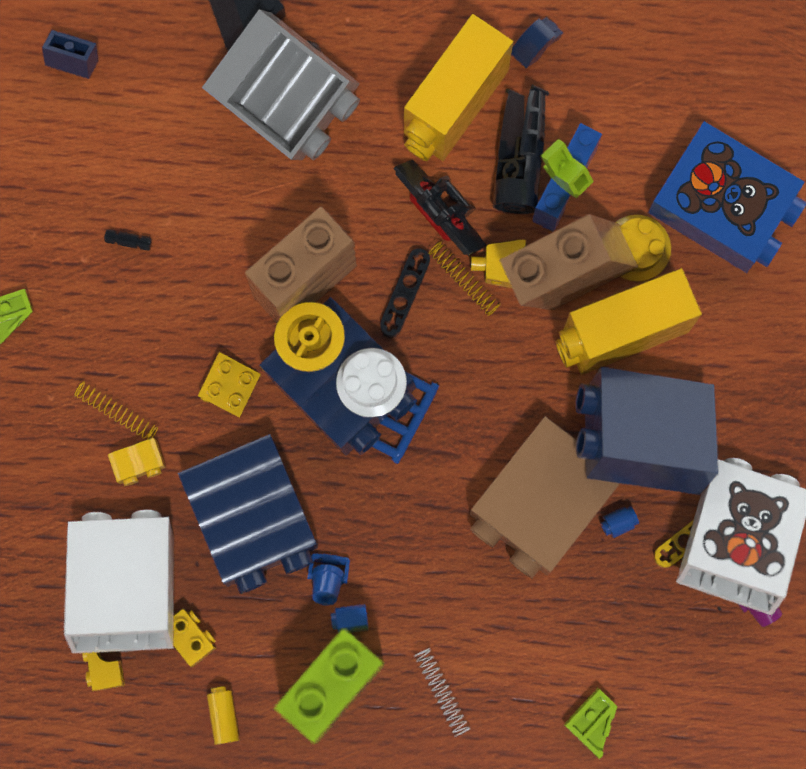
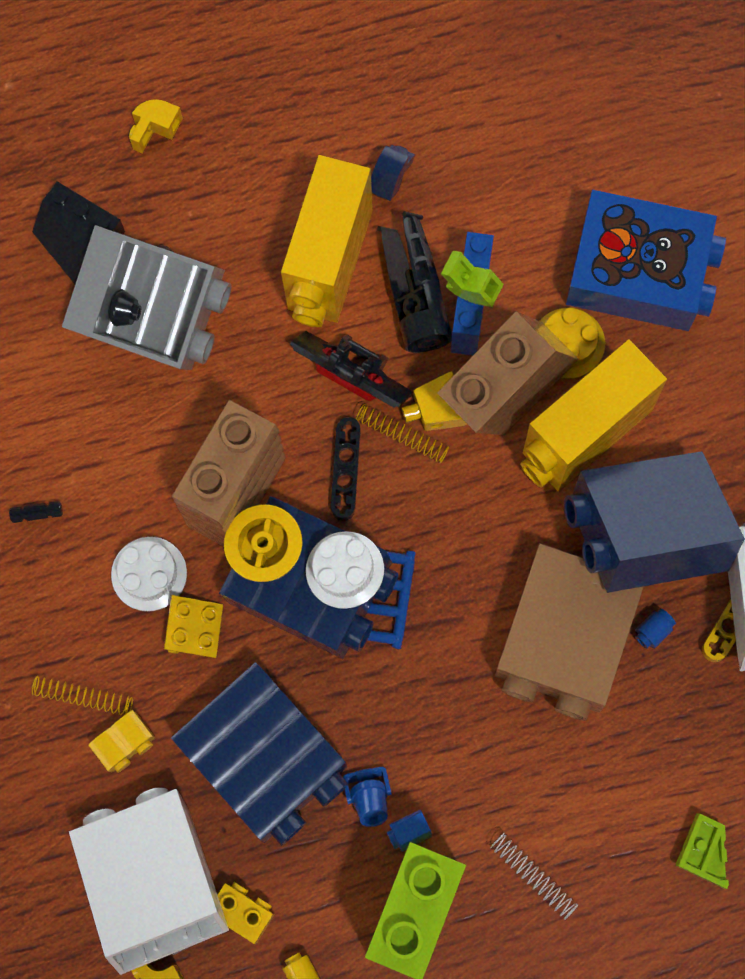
camera: 15 degrees left, 5 degrees down
(206, 326) = (148, 573): none -> white piece
(261, 89) = (124, 309): none -> black cone

